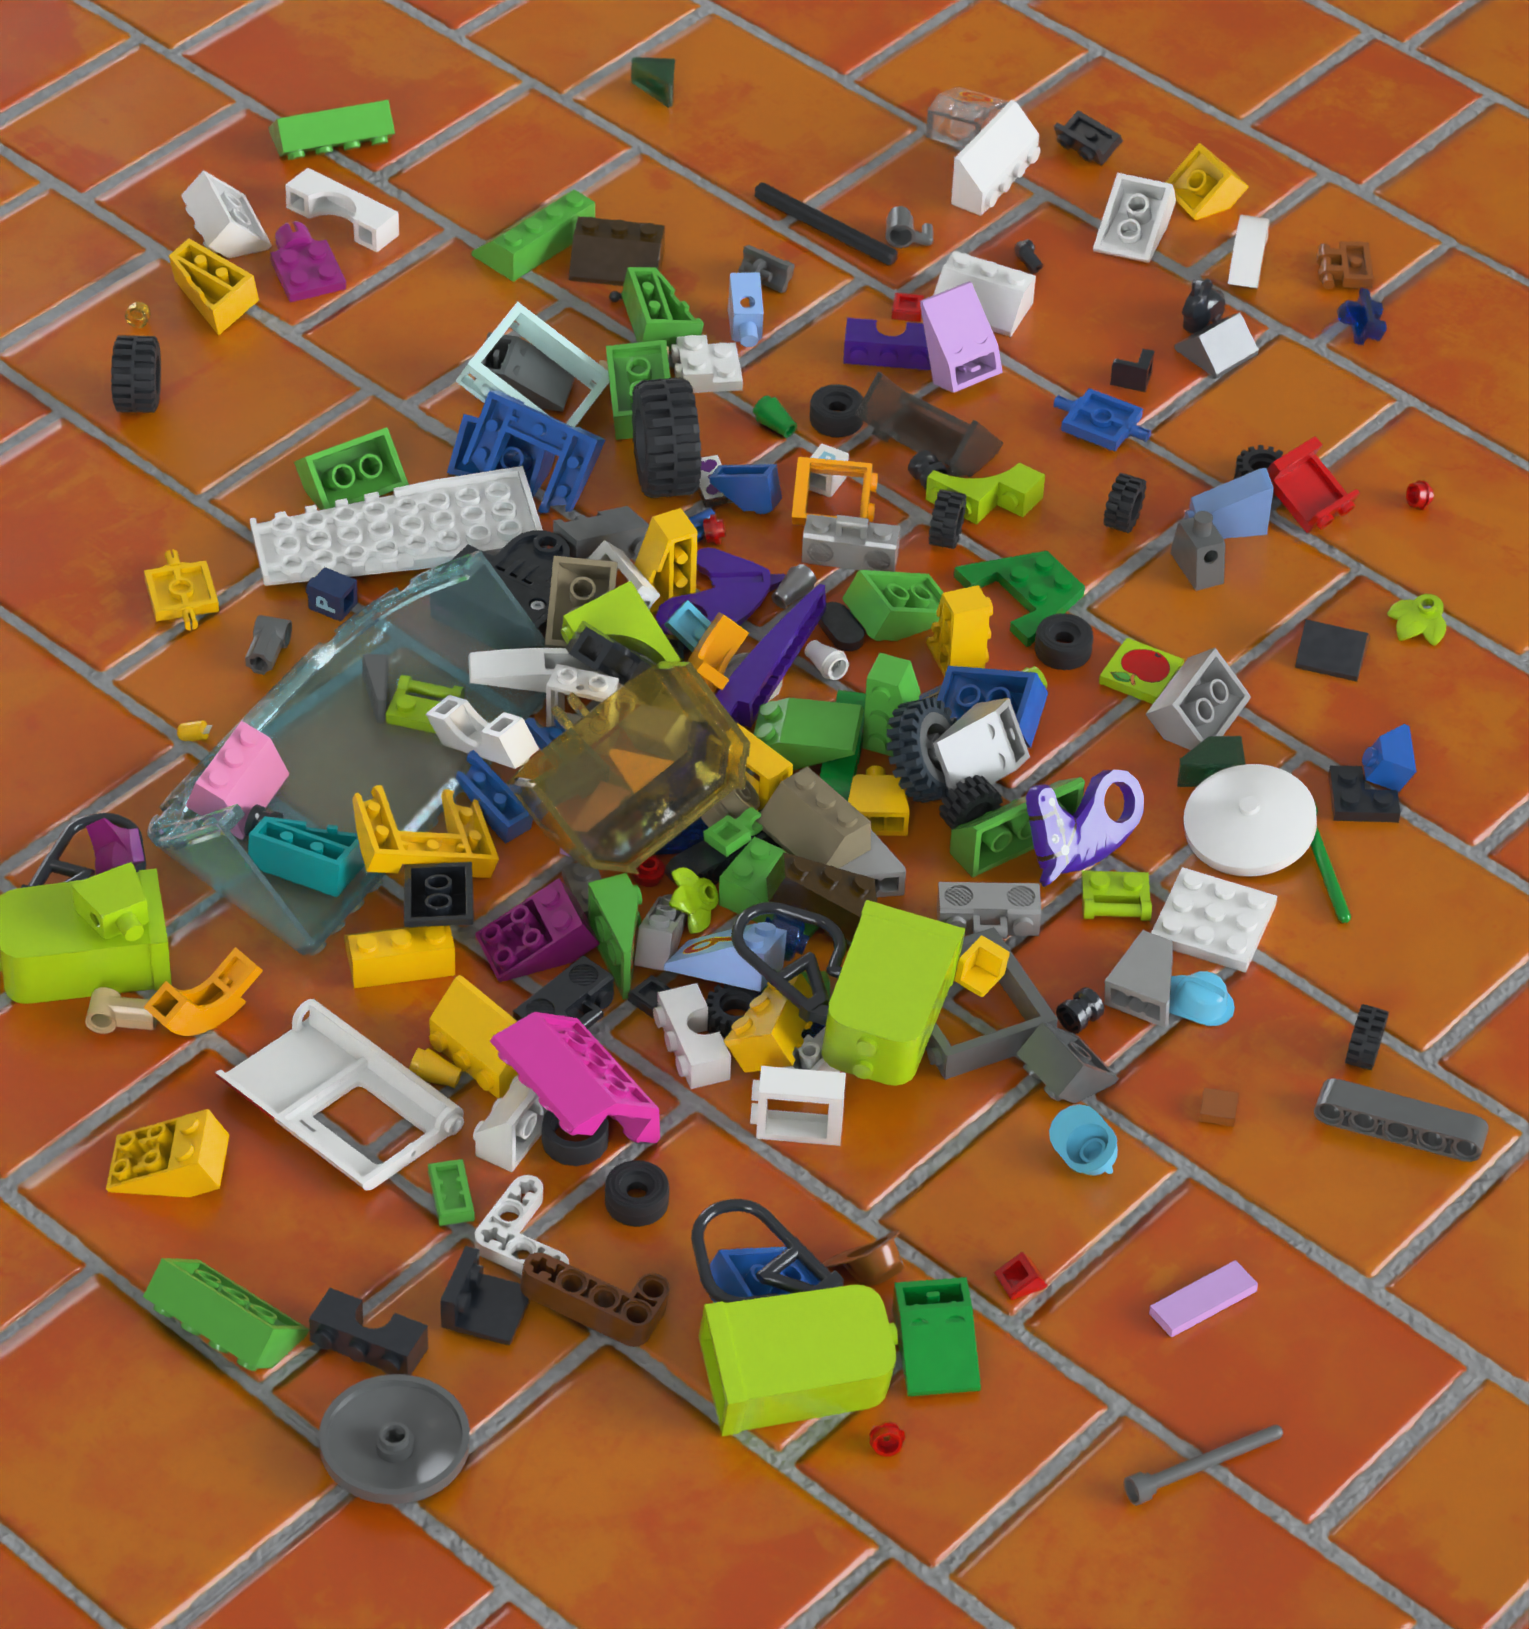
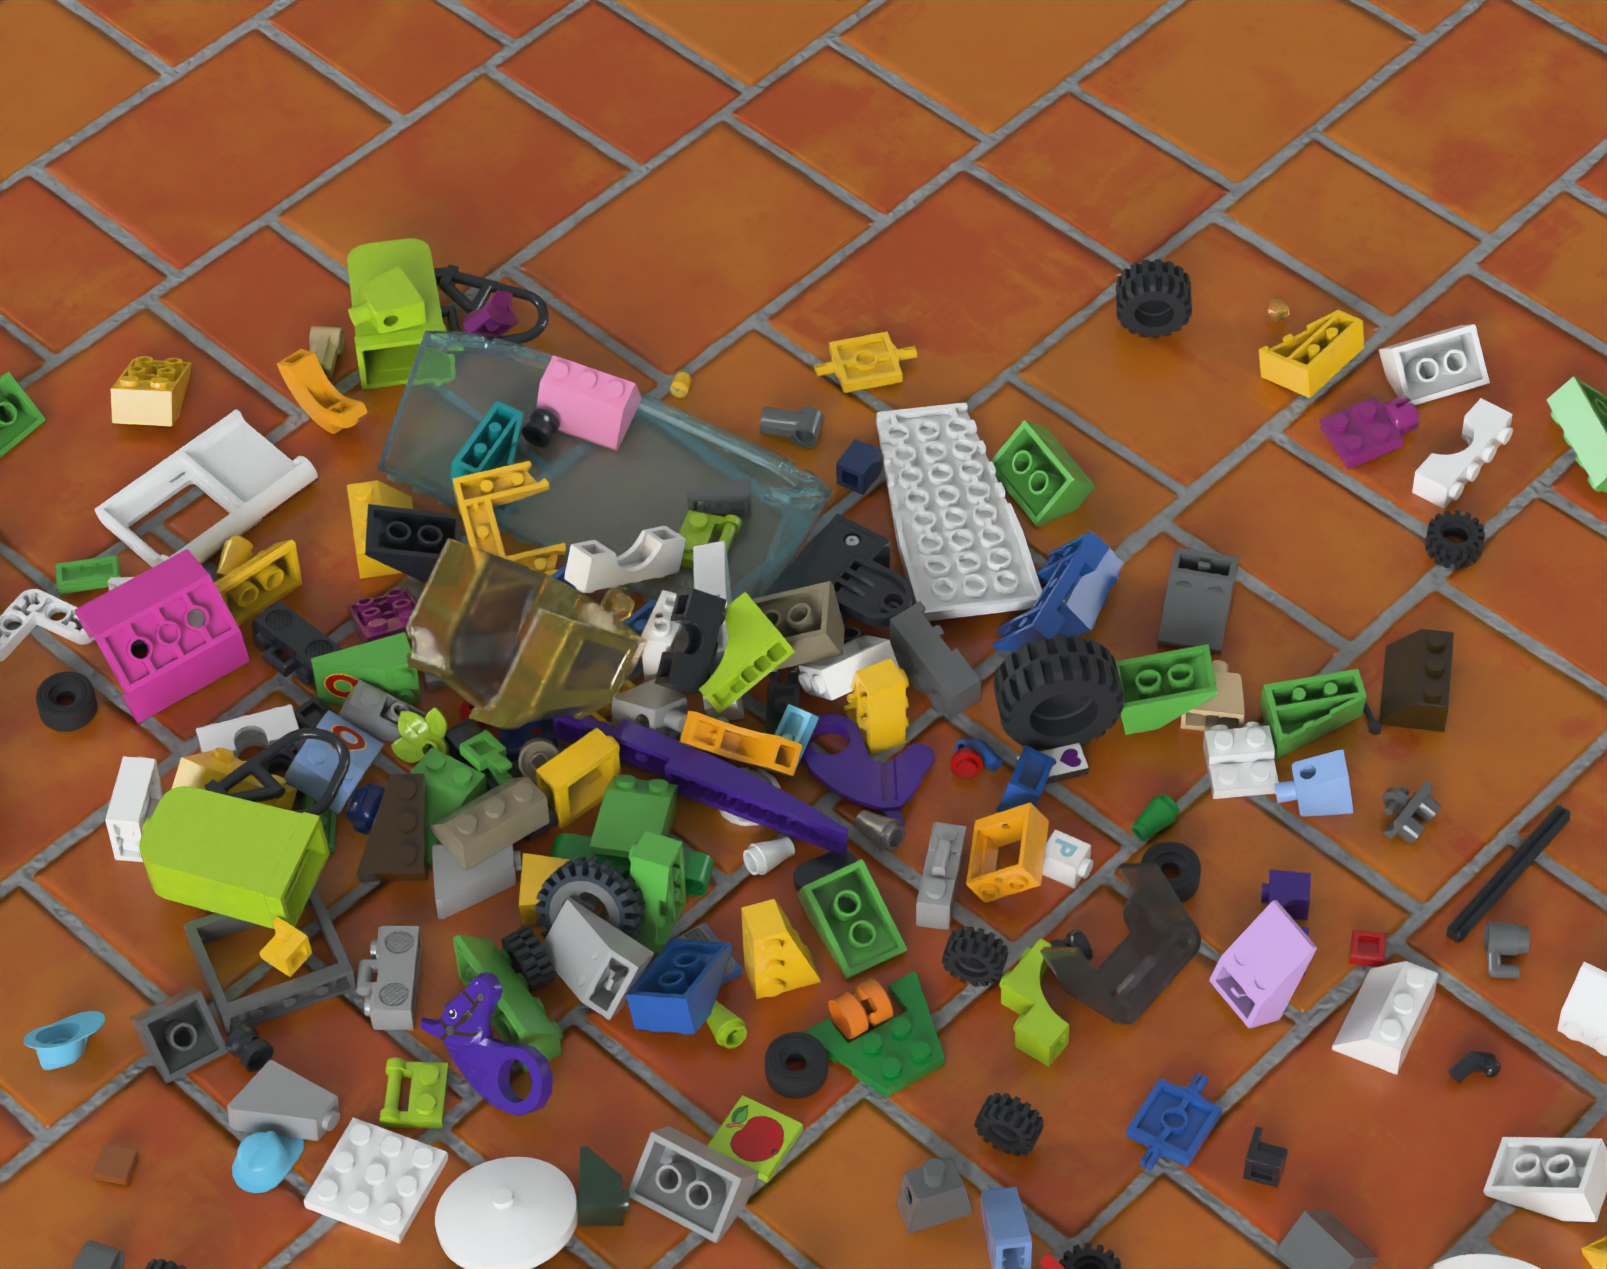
camera: 95 degrees right, 5 degrees up
(446, 223) = (1454, 526): none -> black tyre
(535, 236) = (1433, 605): bright green slope -> none
(548, 342) = (1124, 571): light aqua window -> none
(1008, 596) = (856, 1011): none -> orange wheel
(1202, 306) = (1385, 1232): black animal -> none

